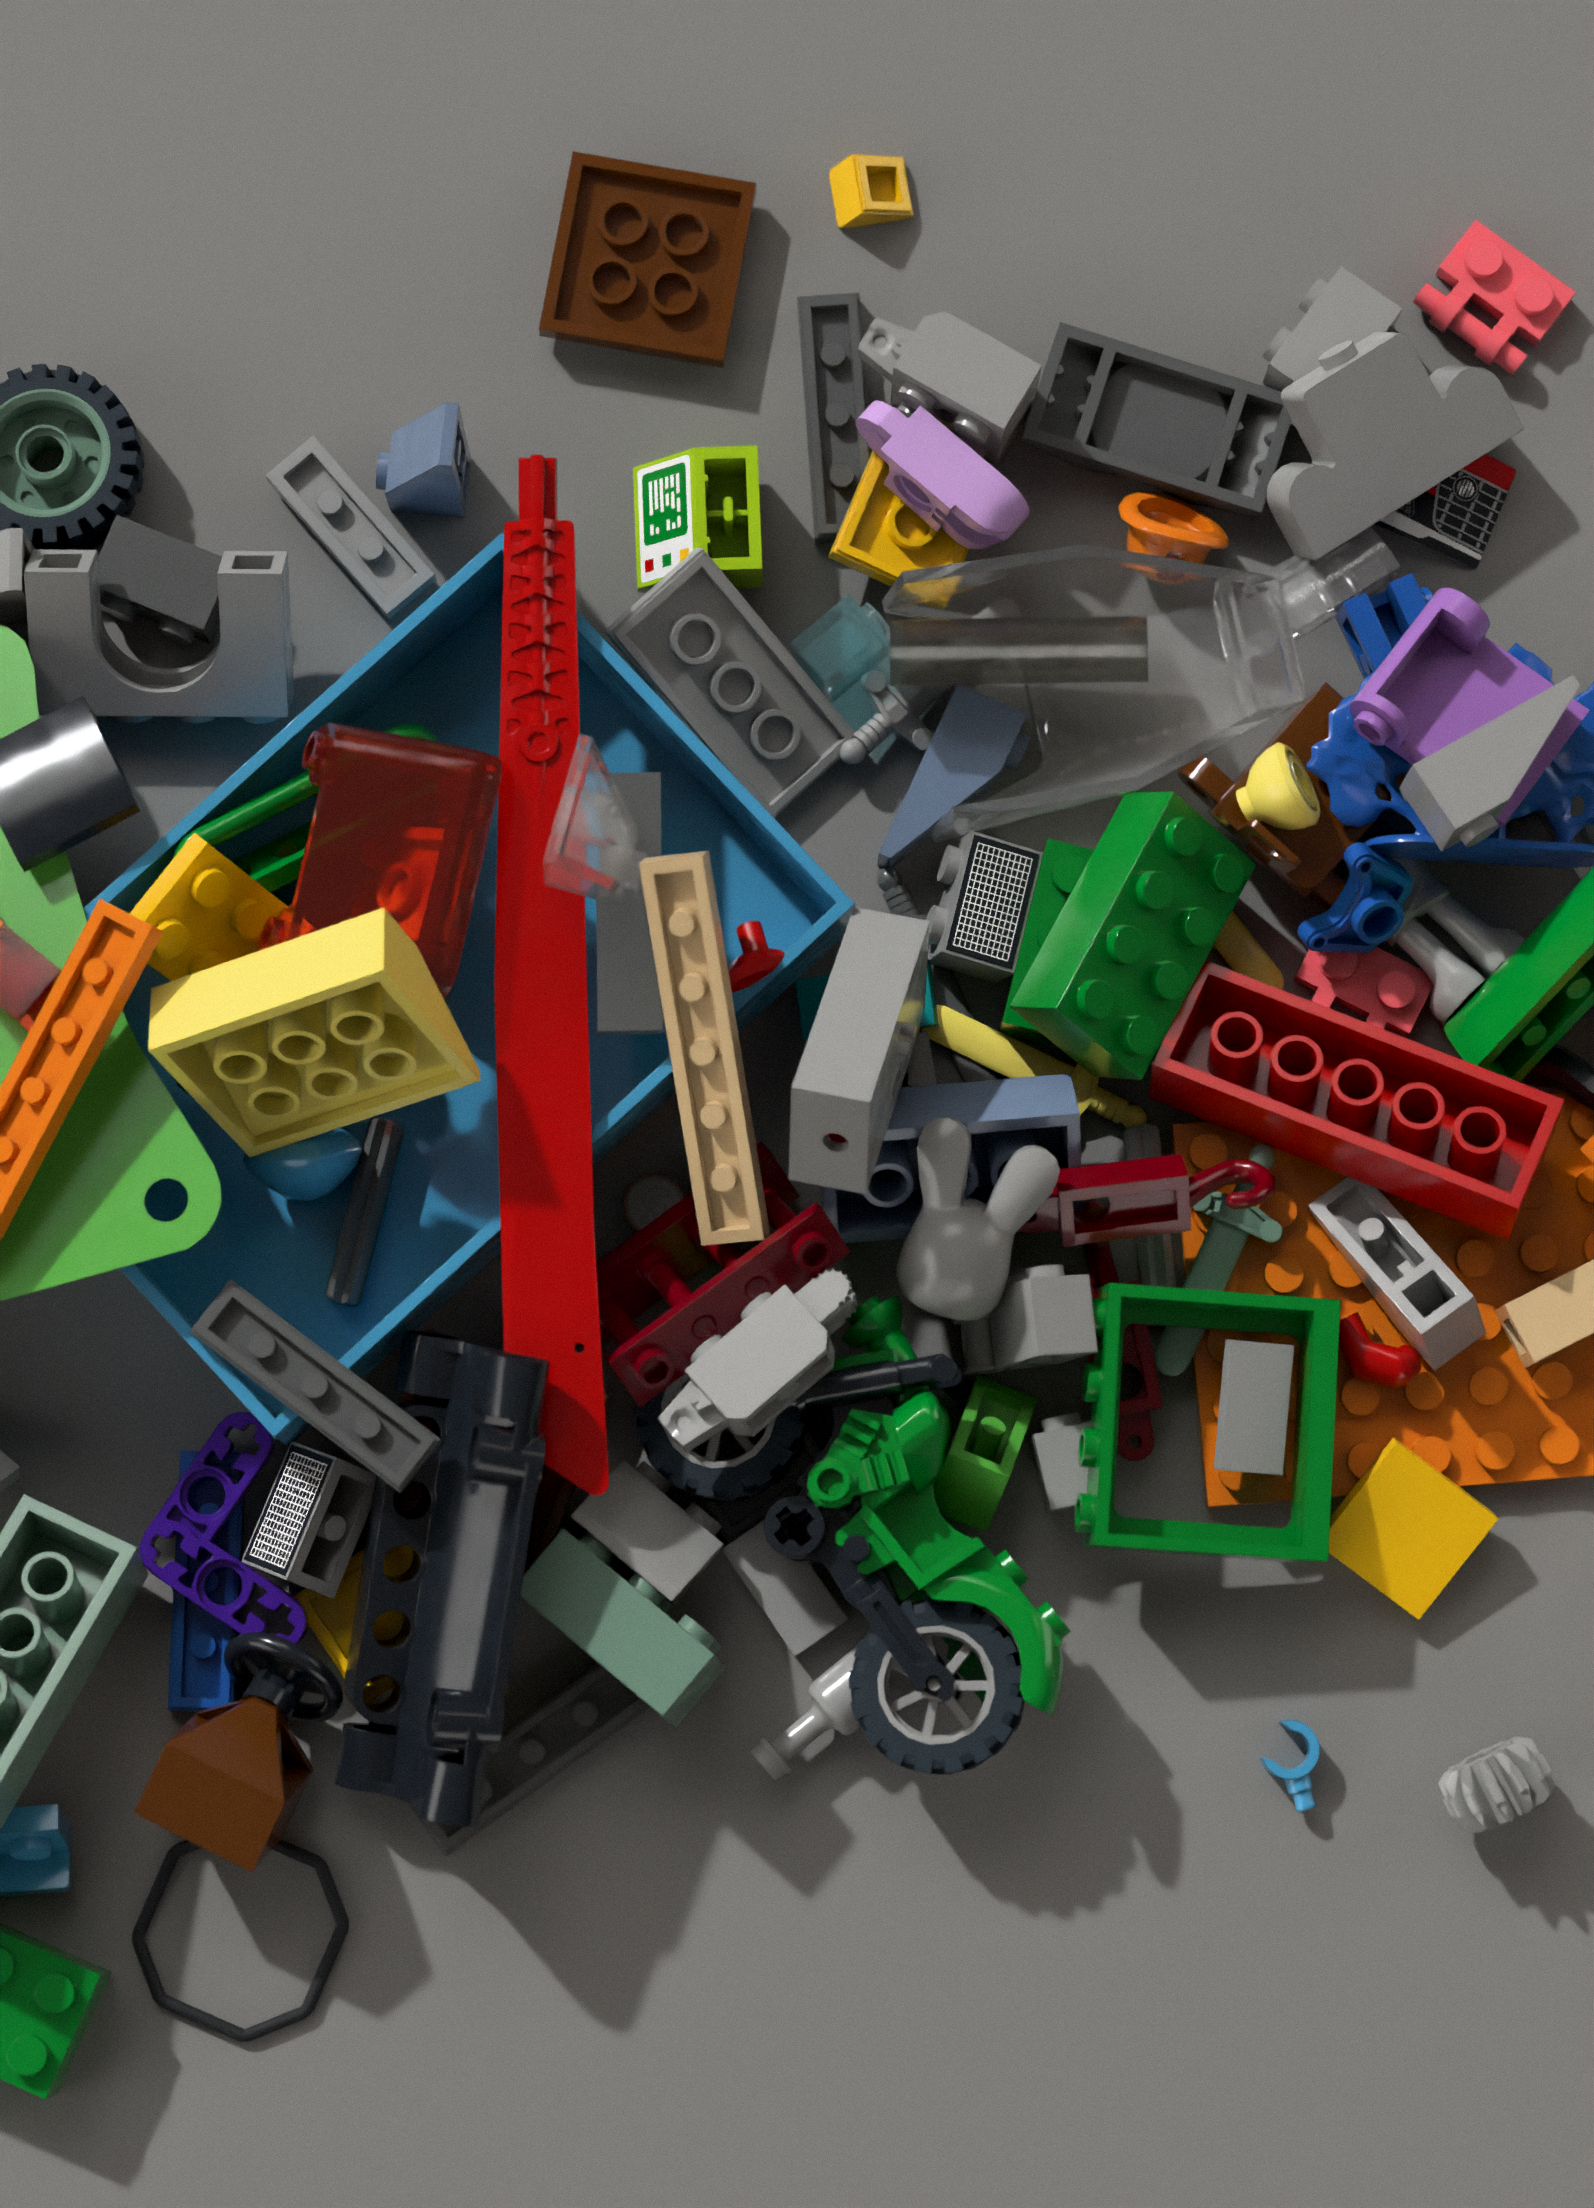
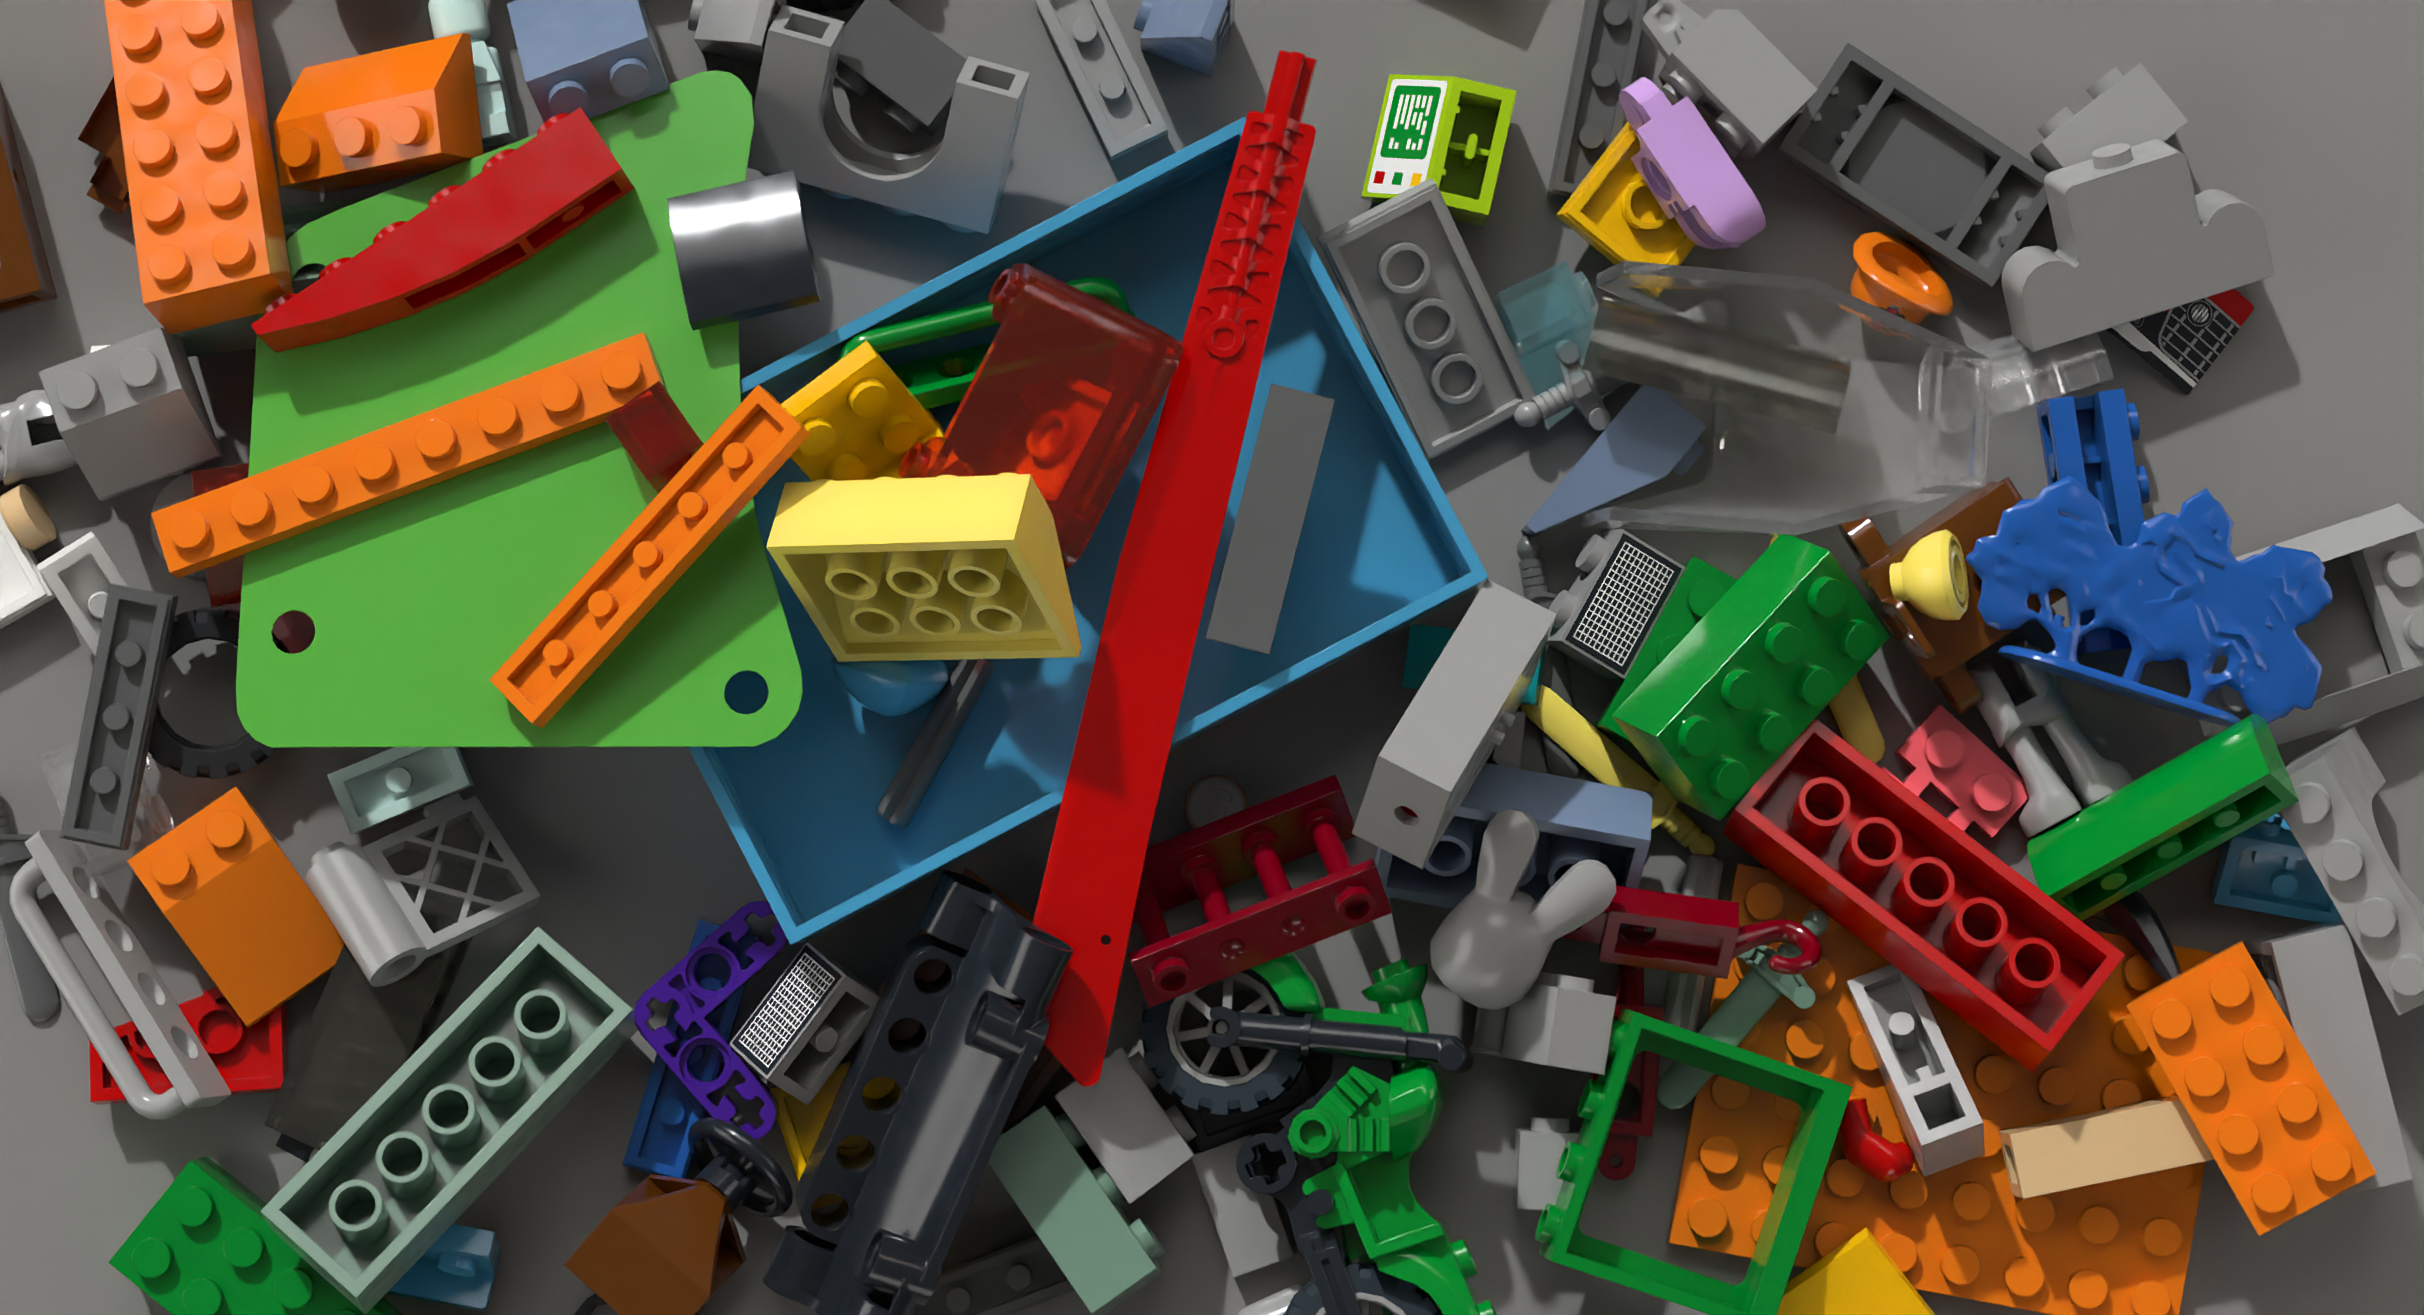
camera: 15 degrees right, 5 degrees up
(315, 1386) = (843, 907): dark grey tile -> none
(593, 833) = (1254, 449): clear slope -> none
(704, 1047) = (1305, 681): tan plate -> none
(756, 958) = (1358, 618): red bar -> none
(761, 1362) = (1276, 1001): light grey hinge -> none
(983, 1453) = (1468, 1132): bright green slope -> none
(1253, 1407) = (1739, 1164): light grey tile -> none
(1367, 907) = (1985, 709): blue piece -> none
(1449, 682) = (2133, 539): medium lavender door -> none
(1472, 779) = (2133, 618): light grey slope -> none
(1505, 286) = (2295, 120): coral plate -> none

